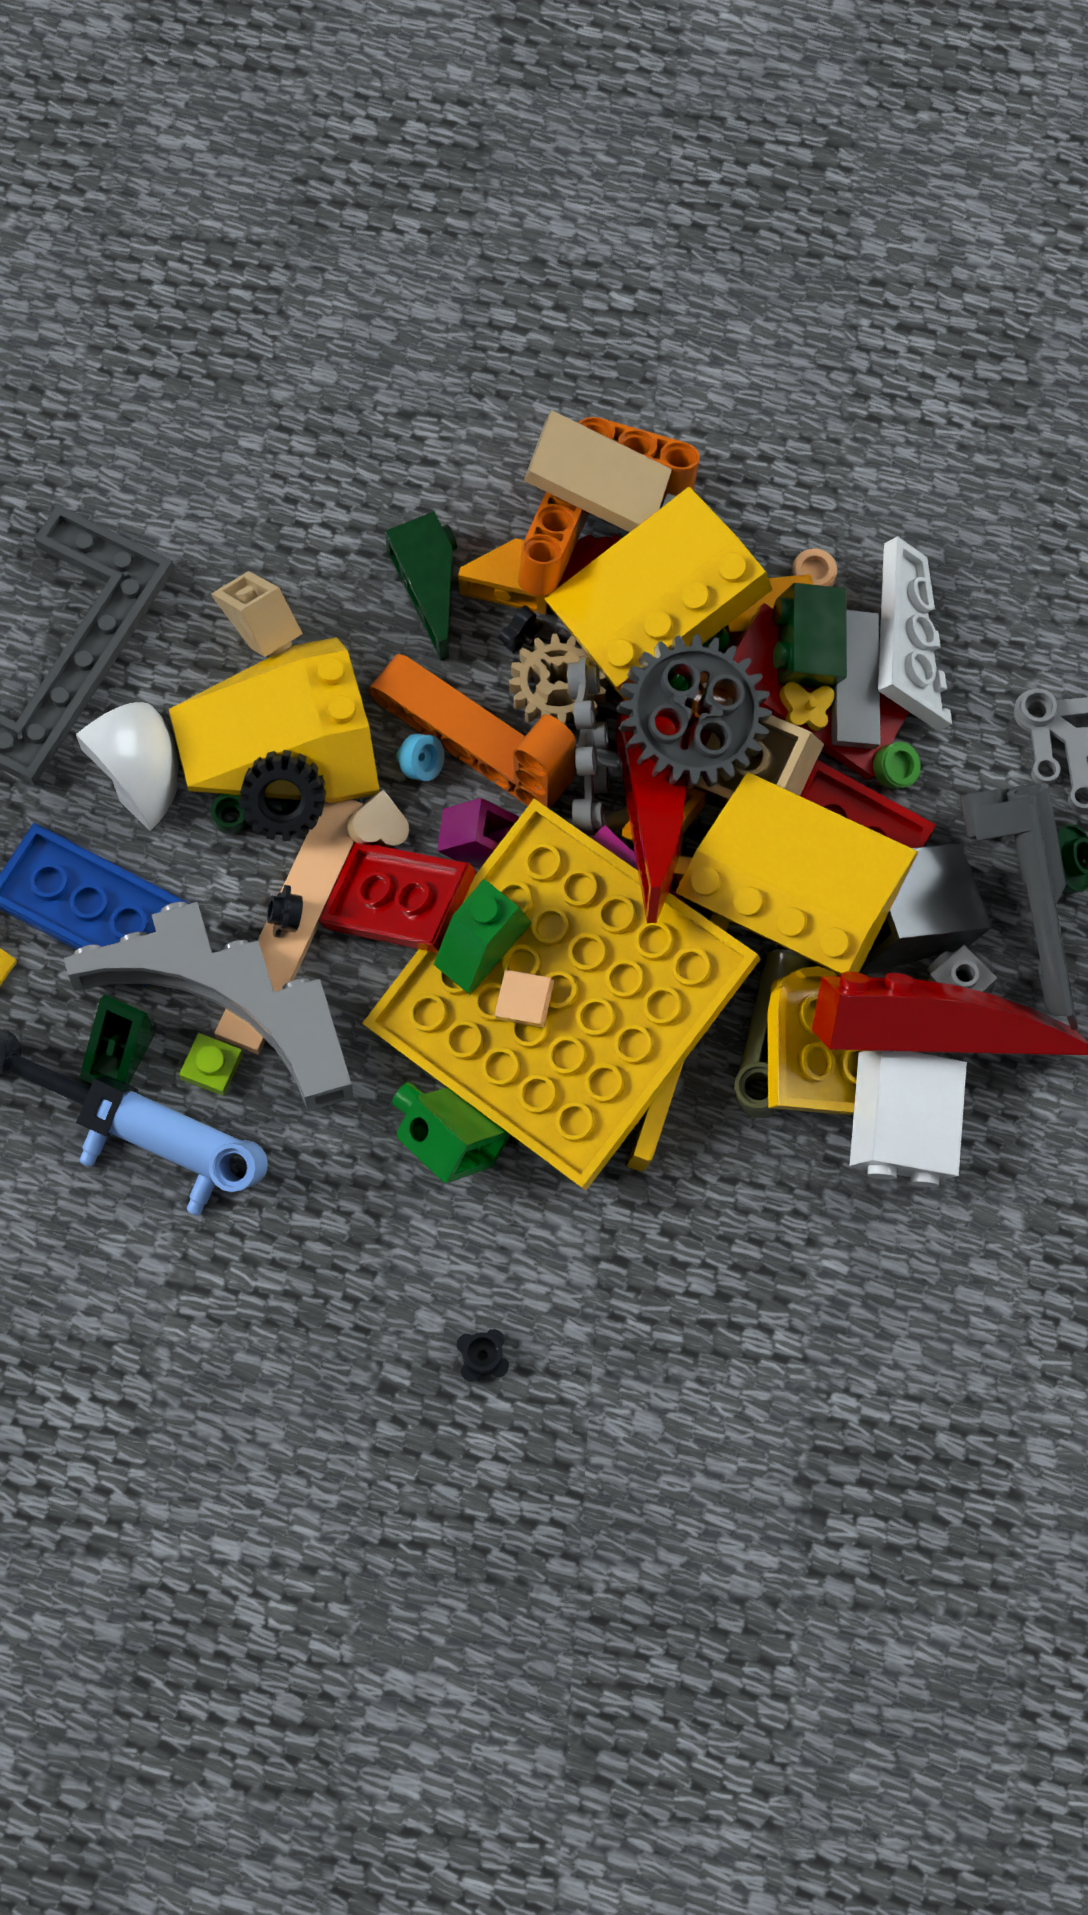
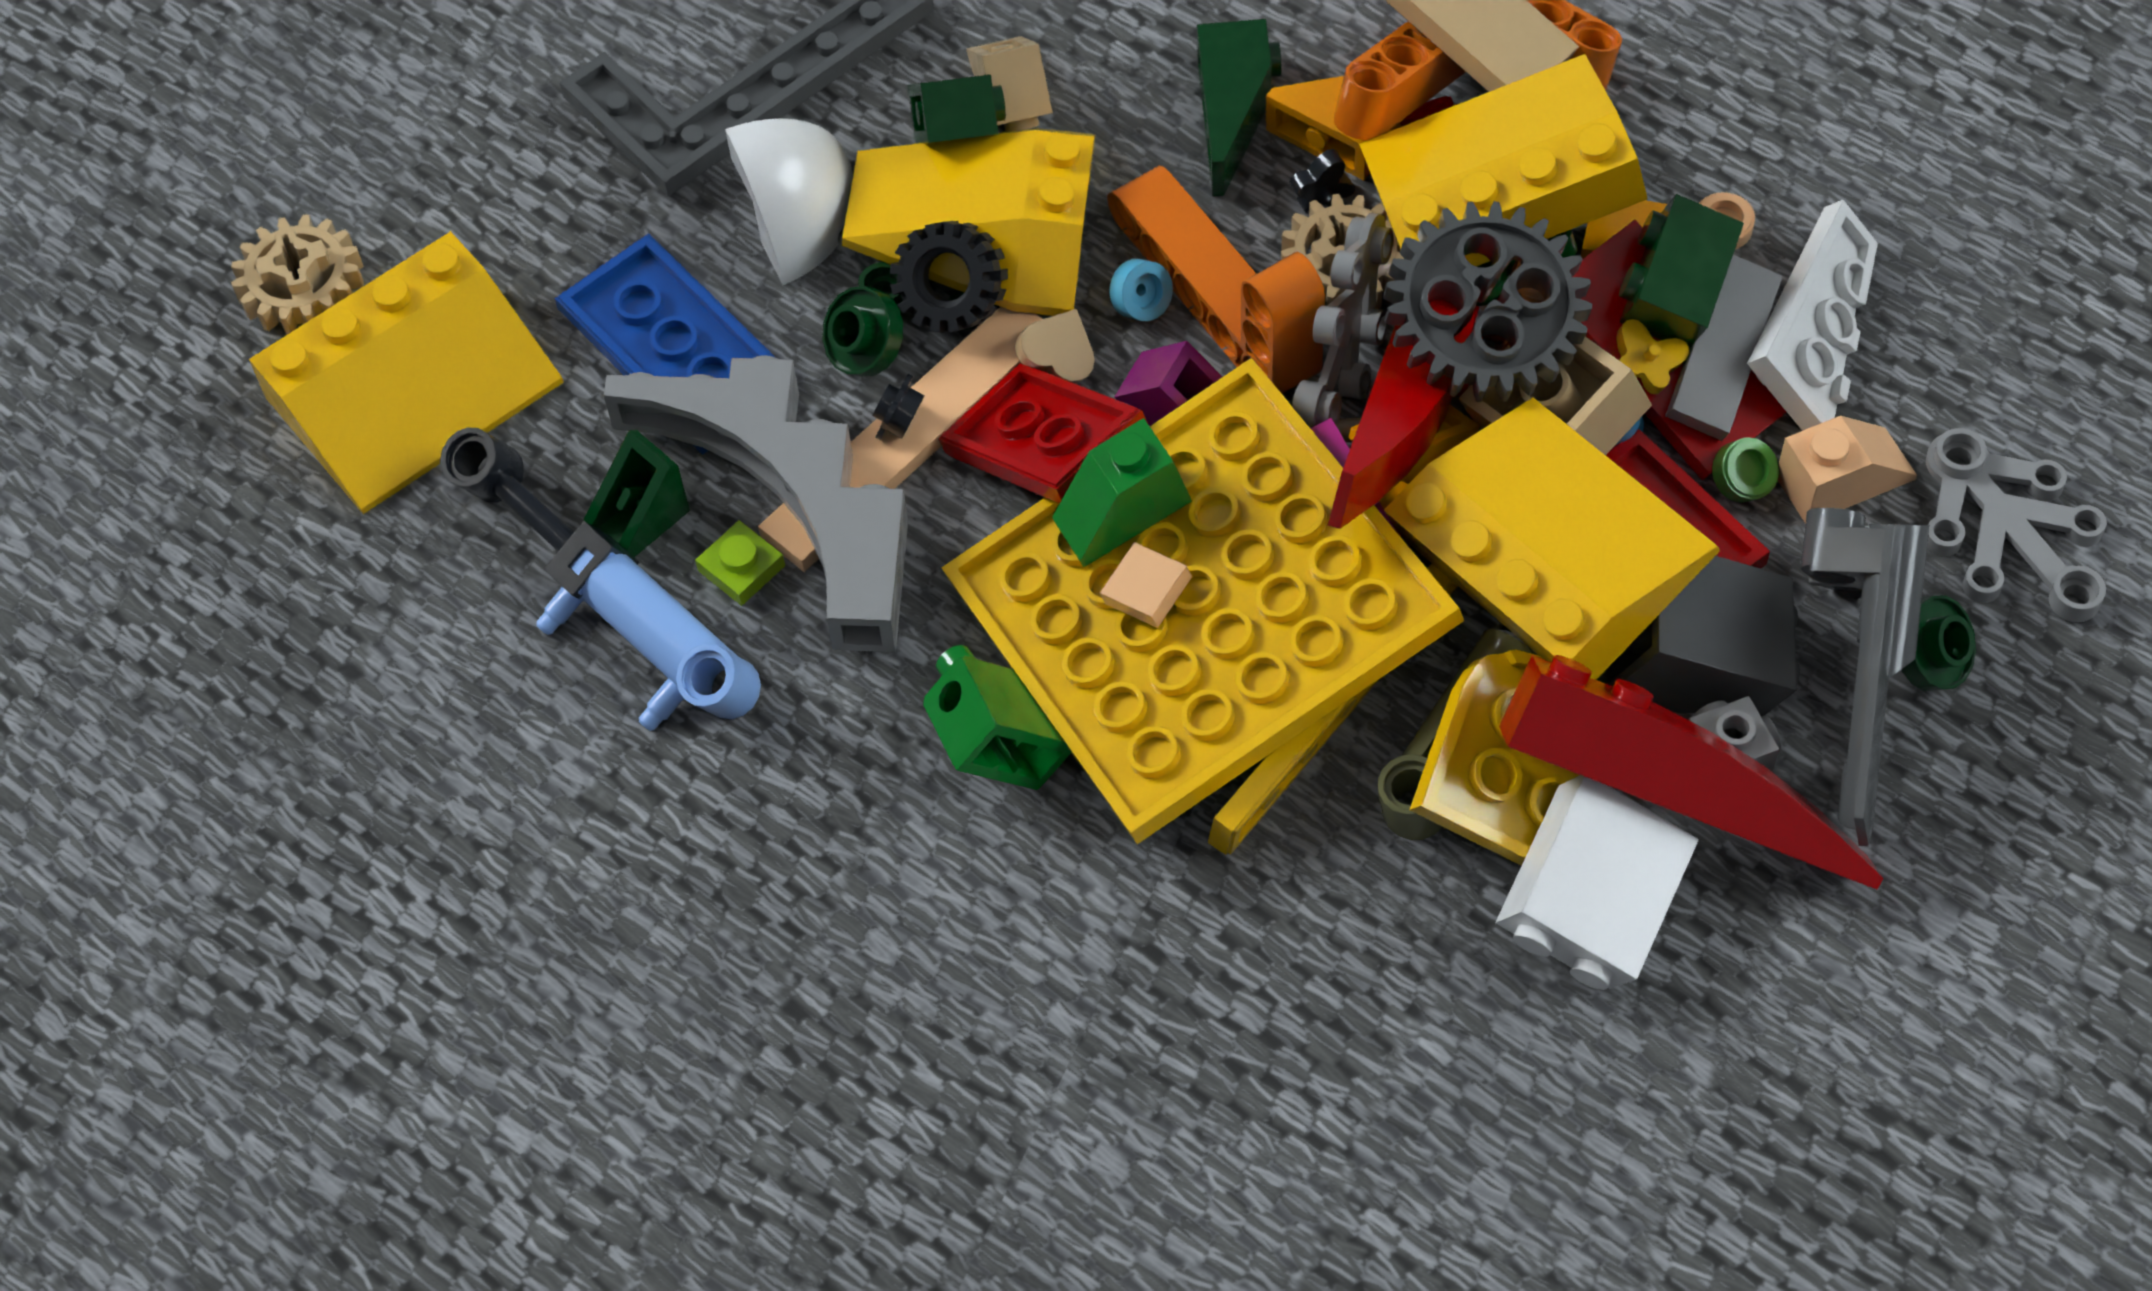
camera: 25 degrees right, 10 degrees down
(231, 855) = (862, 331): none -> dark green plate
(232, 657) = (956, 109): none -> dark green slope
(488, 1342) = (929, 988): black plate -> none
(961, 743) = (1840, 465): none -> light nougat slope

